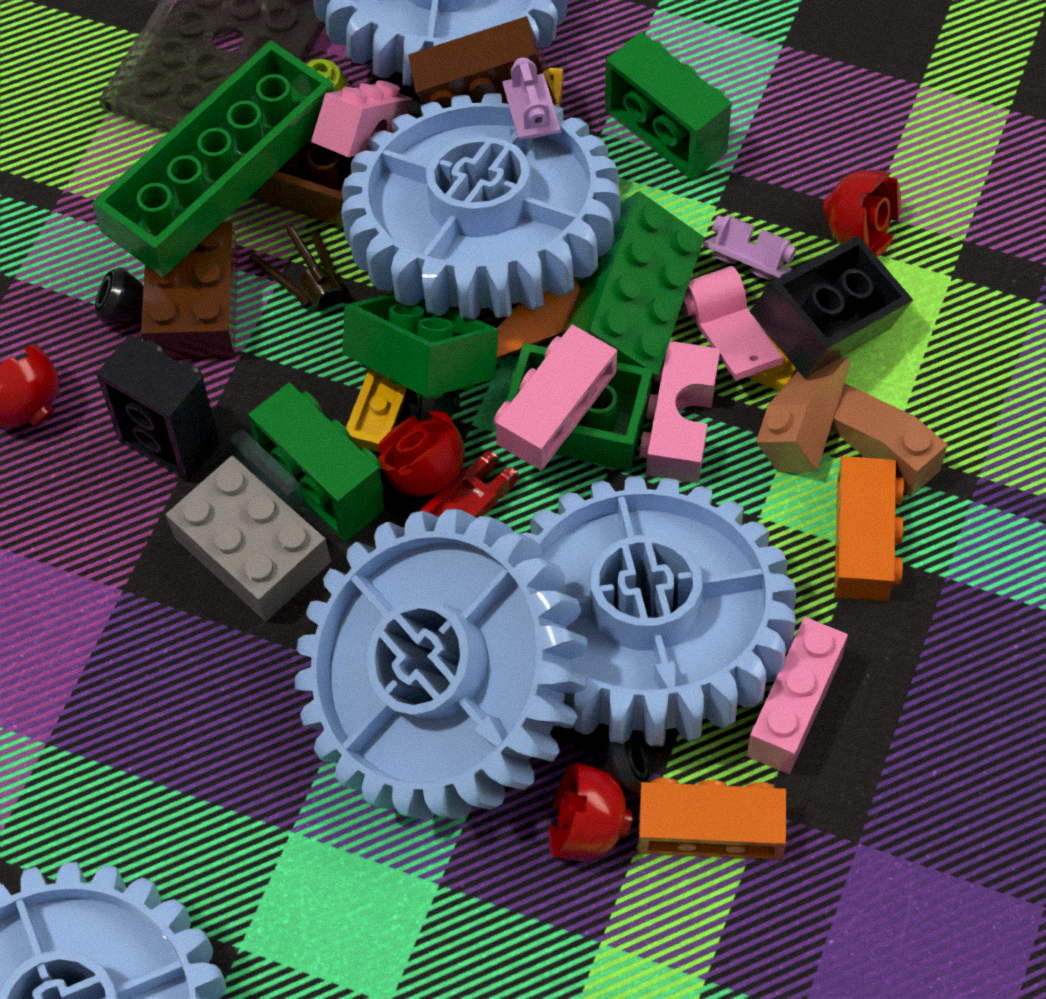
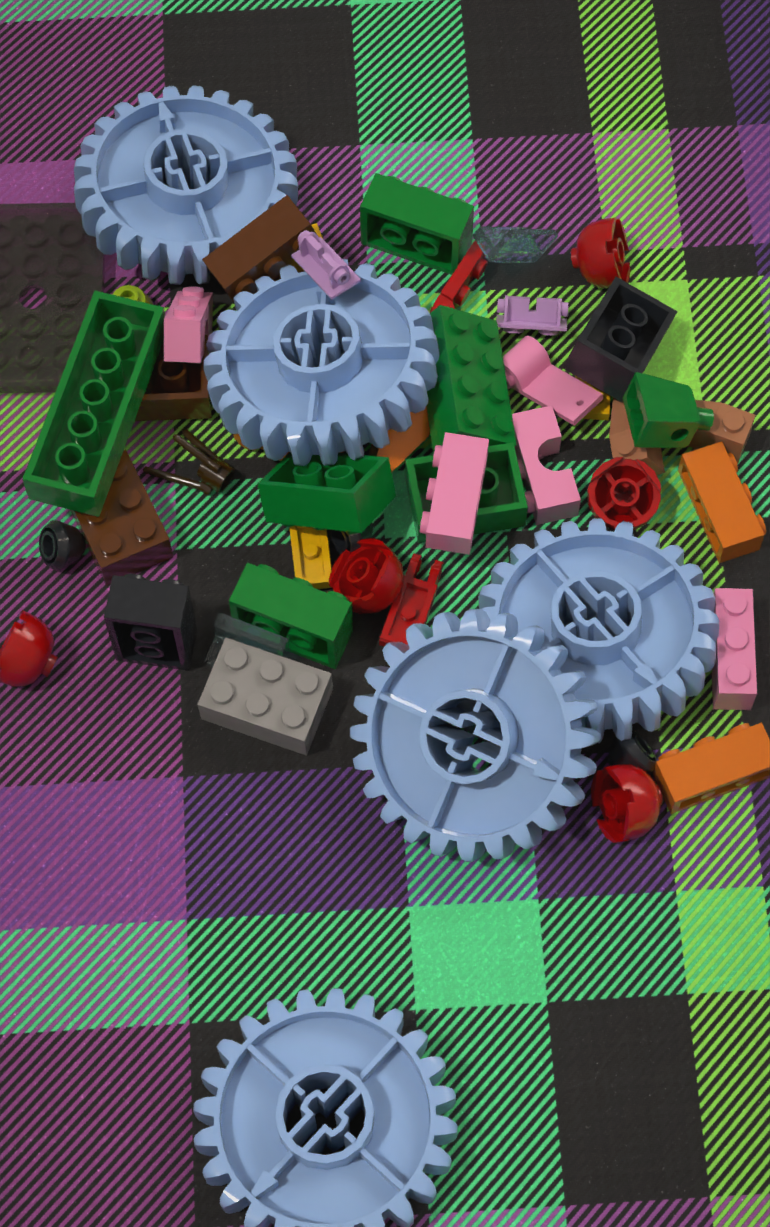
camera: 25 degrees left, 5 degrees up
(704, 174) = (457, 287): none -> red hinge
(752, 471) = (624, 492): none -> red cylinder
(765, 164) = (513, 243): none -> clear light blue panel
(836, 399) = (663, 412): none -> green torso

